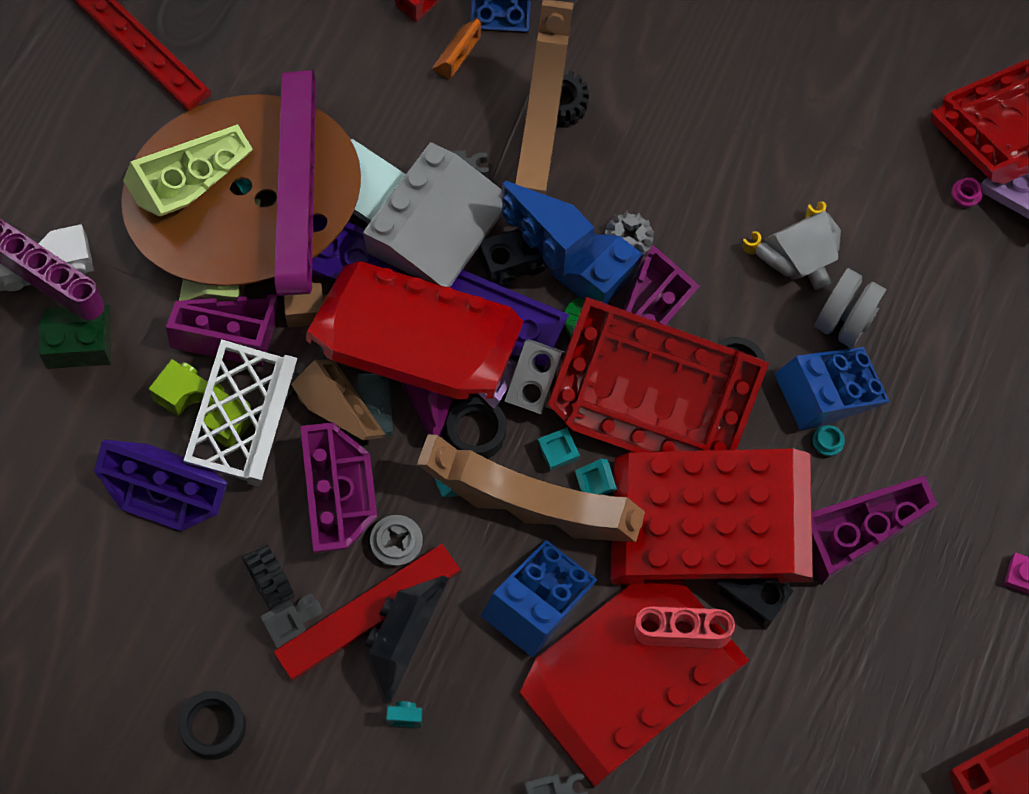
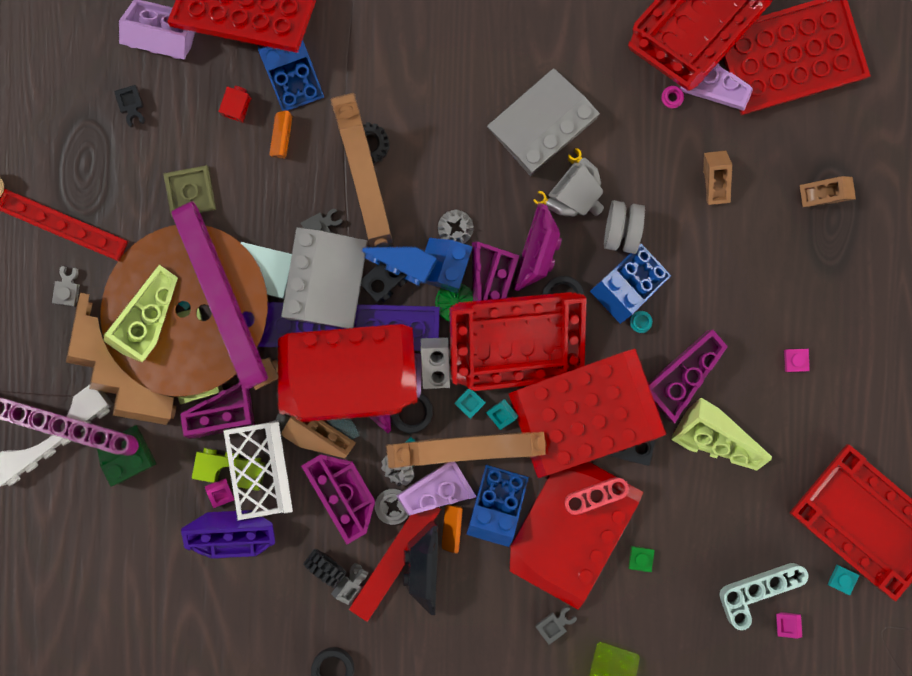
camera: 15 degrees left, 20 degrees up
(108, 117) = (65, 291): none -> light grey plate
(123, 261) = (89, 350): none -> medium nougat arch
(174, 427) = (219, 493): none -> dark pink plate
(325, 59) = (188, 186): none -> olive tile
(404, 715) = (446, 615): teal plate -> none
(432, 501) = (403, 477): none -> light grey gear
(465, 602) = (452, 528): none -> orange slope
(466, 539) = (436, 489): none -> lavender wing
(712, 754) = (641, 559): none -> green plate
(728, 294) = (538, 249): none -> magenta wedge
(792, 159) = (543, 121): none -> light grey slope
(878, 623) = (712, 431): none -> yellowish green wedge
(993, 304) = (718, 177): none -> medium nougat arch

